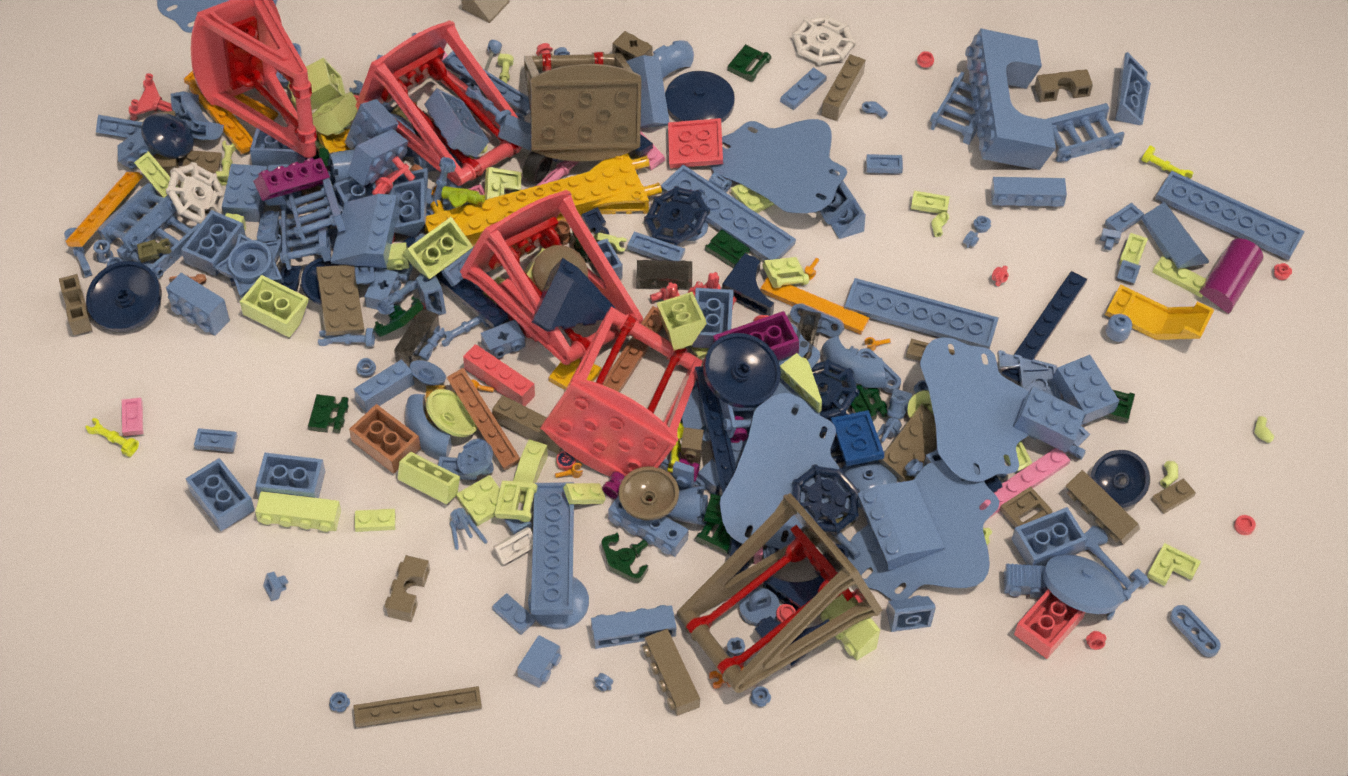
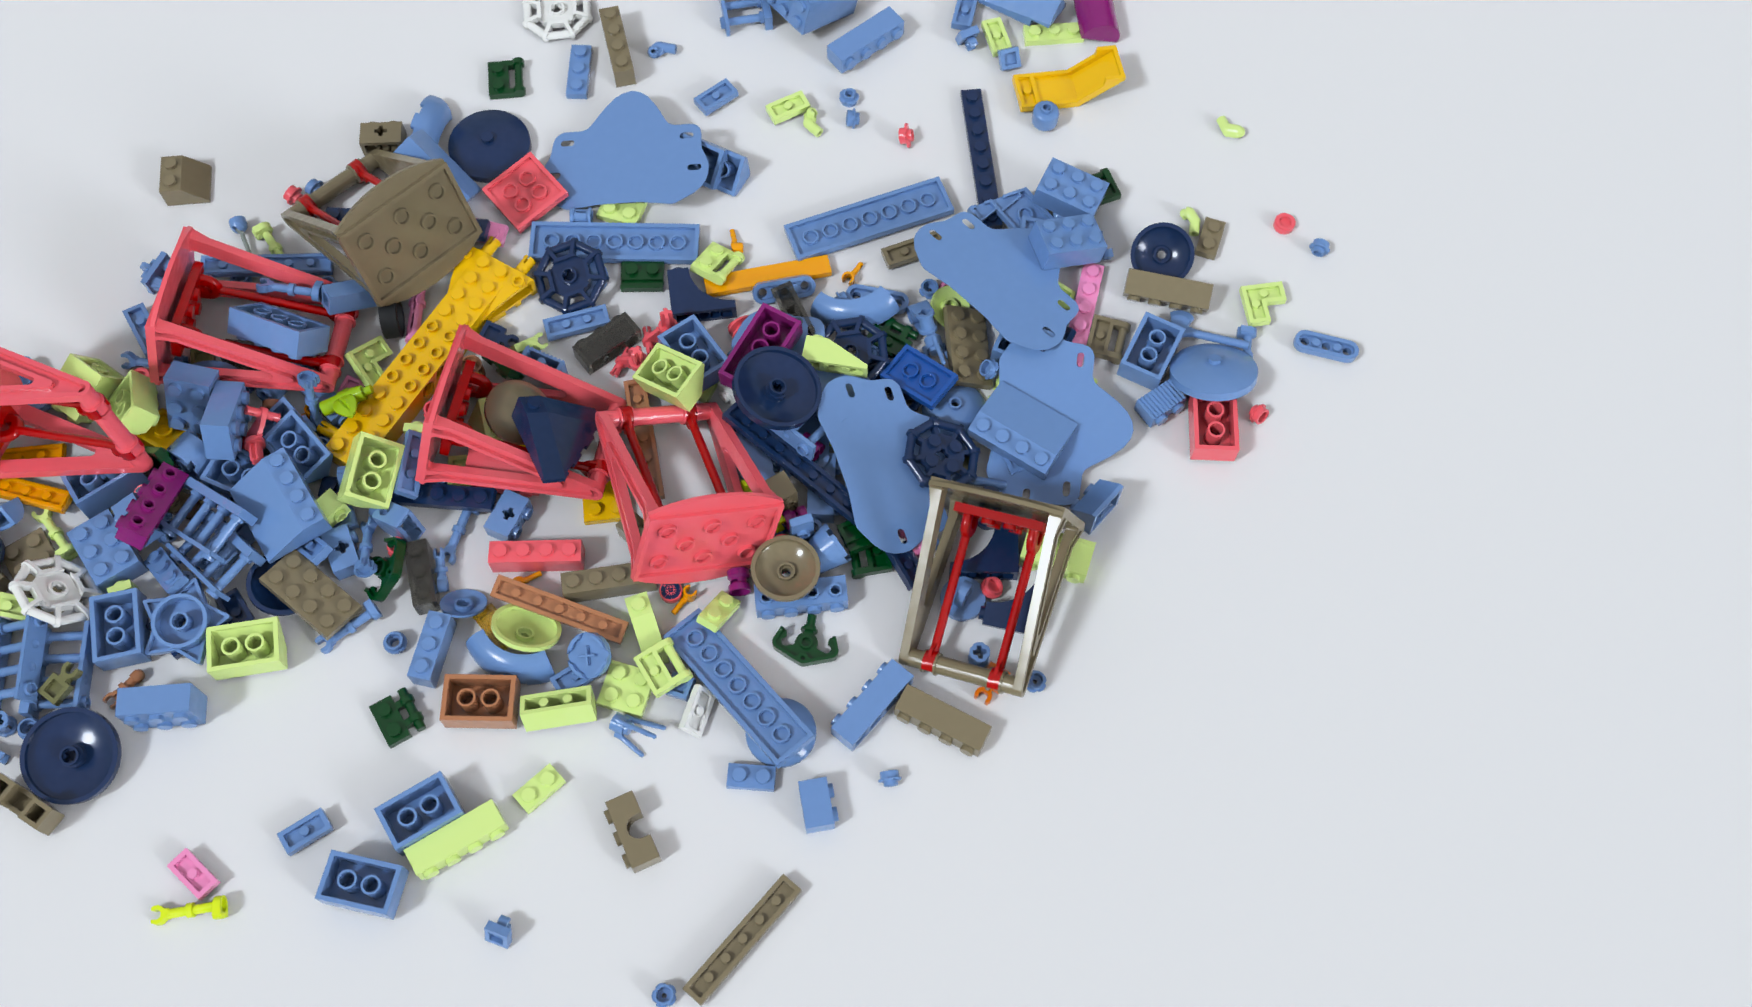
camera: 40 degrees left, 10 degrees up
(1257, 559) = (1319, 247): none -> medium blue plate

